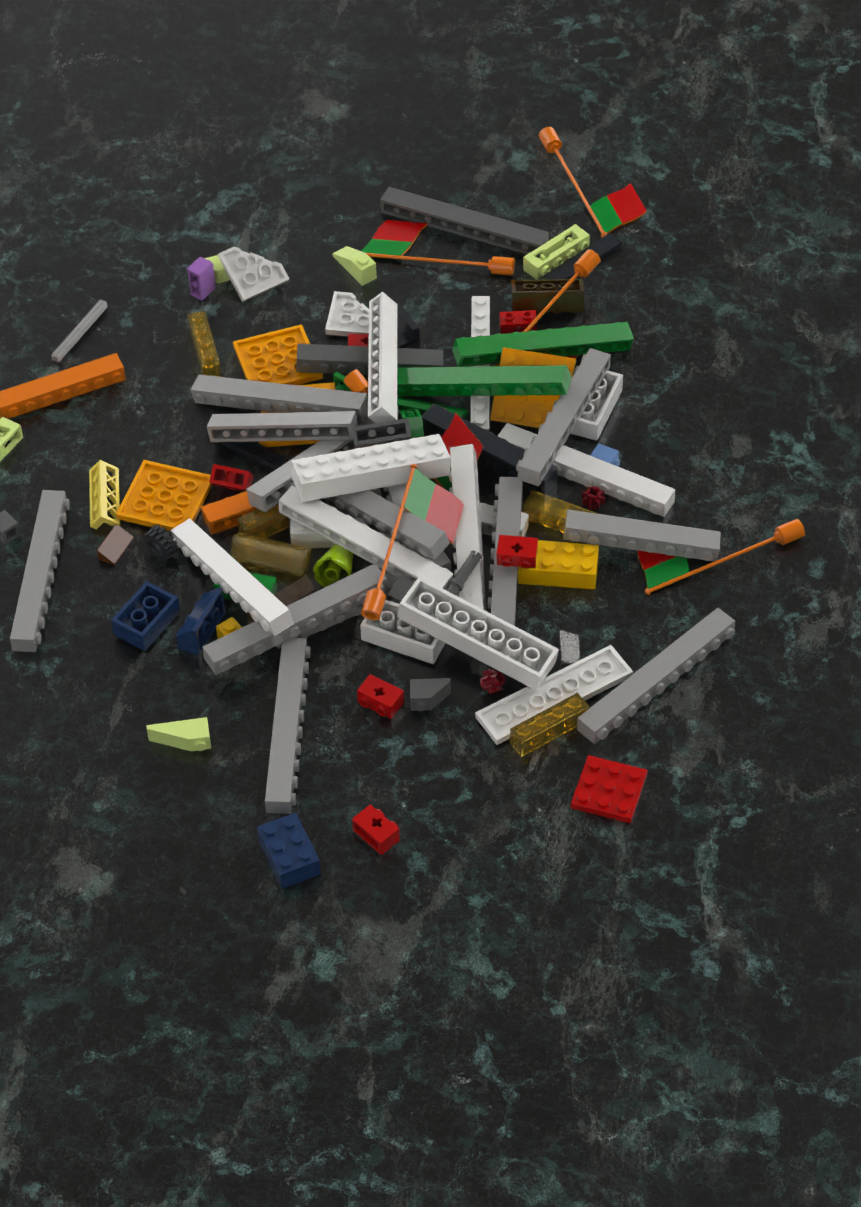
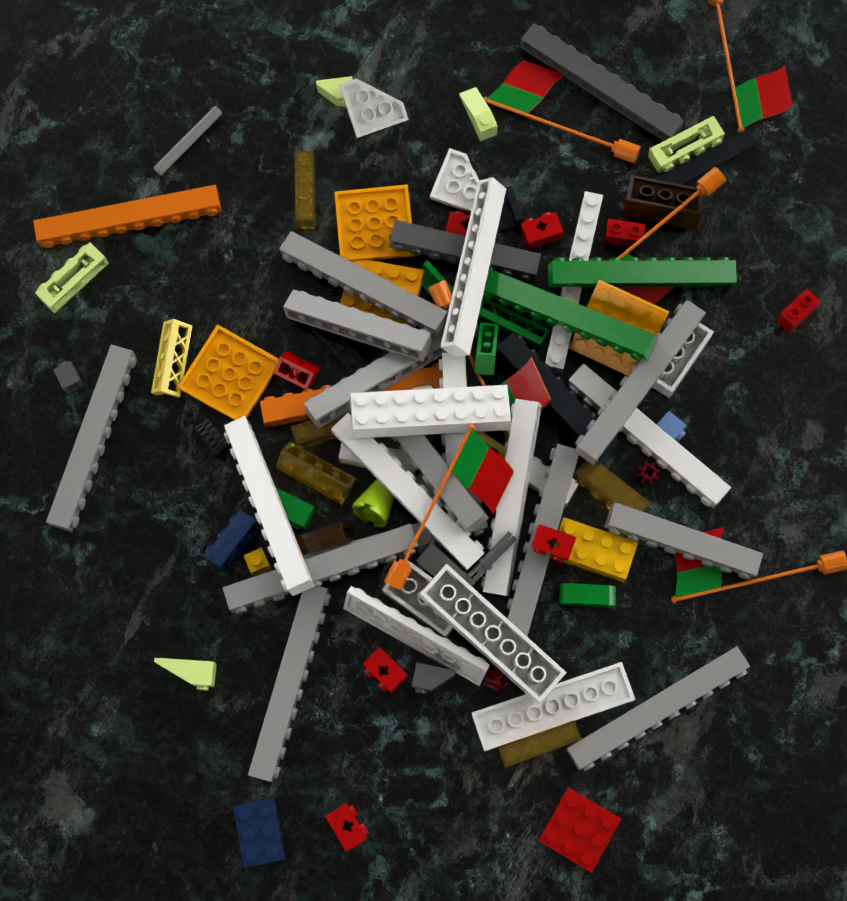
camera: 15 degrees right, 25 degrees up
(114, 545) = (170, 422): slope -> none
(145, 616) = (180, 522): dark blue brick -> none
(201, 278) = (319, 104): medium lavender brick -> none
(381, 433) = (450, 371): dark grey brick -> none
(402, 659) = (416, 636): none -> white plate
(439, 335) = (535, 237): none -> red brick
(562, 601) = (587, 595): none -> green beam
(568, 648) = (580, 655): clear smoke slope -> none
(697, 352) = (798, 311): none -> red brick

